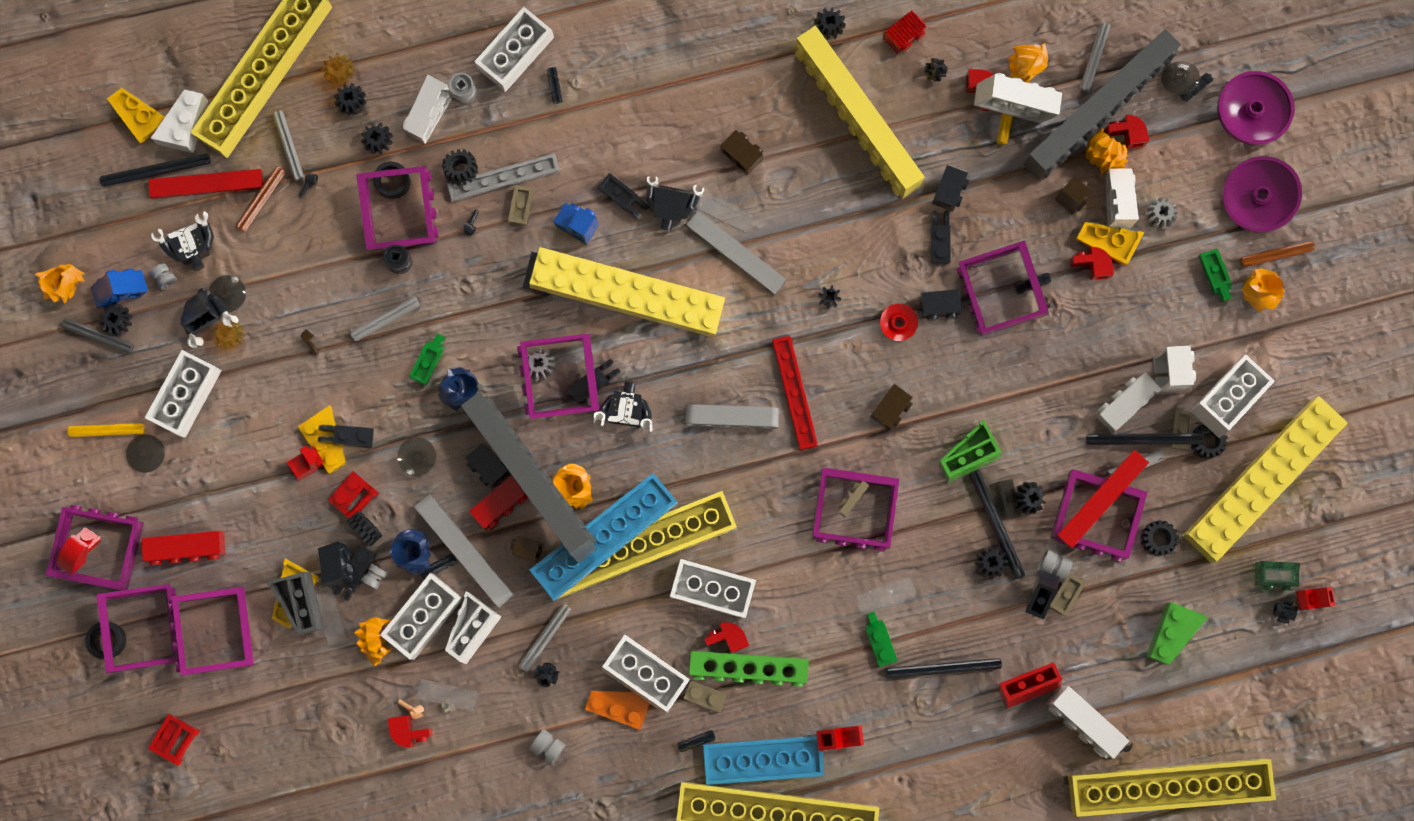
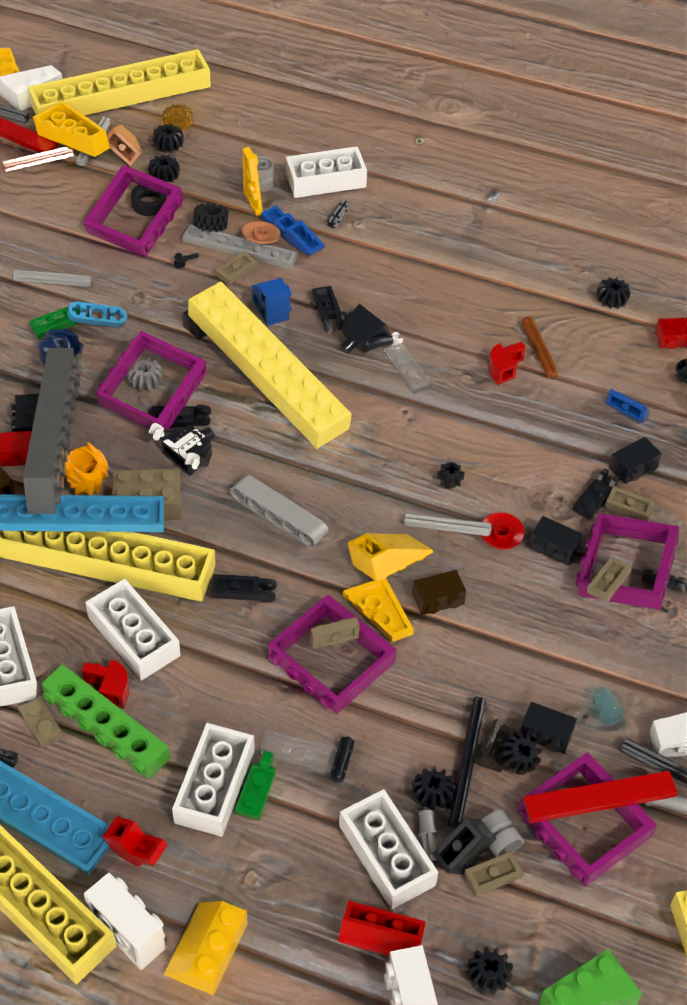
camera: 30 degrees right, 30 degrees down
(268, 154) = (72, 129): none -> yellow wedge
(309, 179) = (86, 166): black hand -> none
(322, 135) = (124, 144): none -> nougat slope
(397, 259) = (101, 244): black wheel -> none
(427, 109) = (219, 170): white wedge -> none
(467, 110) = (251, 180): none -> yellow wing
(469, 330) = (104, 309): none -> dark azure beam
(512, 147) = (261, 232): none -> nougat dish
(534, 133) = (292, 231): none -> blue slope
(630, 469) = (151, 483): none -> dark tan brick
(736, 252) = (393, 401): light grey tile -> none
(742, 152) = (459, 333): dark brown brick -> none
(754, 500) = (243, 588): none -> black hinge
(791, 160) = (504, 361): none -> red brick
(795, 393) = (355, 526): red tile -> none
(809, 120) = (540, 347): none -> dark orange axle
(837, 401) = (385, 553): none -> yellow slope
(853, 659) = (213, 779): none -> white brick
(858, 344) = (447, 524): none -> light grey axle
(859, 113) = (589, 361): light yellow brick -> none
(861, 447) = (381, 608): none -> yellow wing
(876, 791) = (134, 928): none -> white brick
(912, 134) = (627, 405): none -> blue slope
(918, 581) = (342, 759): none -> black axle
(931, 767) = (207, 945): none -> yellow slope
(943, 668) = (303, 858): black axle -> none
(970, 231) = (630, 504): none -> dark tan plate
(970, 454) = (485, 676): bright green wedge -> none
(995, 628) = (388, 849): none -> white brick
(1006, 322) = (609, 579): none -> dark tan plate
(1009, 597) = (427, 832): none -> light grey axle
(1033, 464) = (549, 727): none -> black brick
(1060, 419) = (608, 706): none -> clear light blue brick
(1109, 668) = (489, 961): none -> black gear
(1147, 538) = (637, 899): black tyre -> none

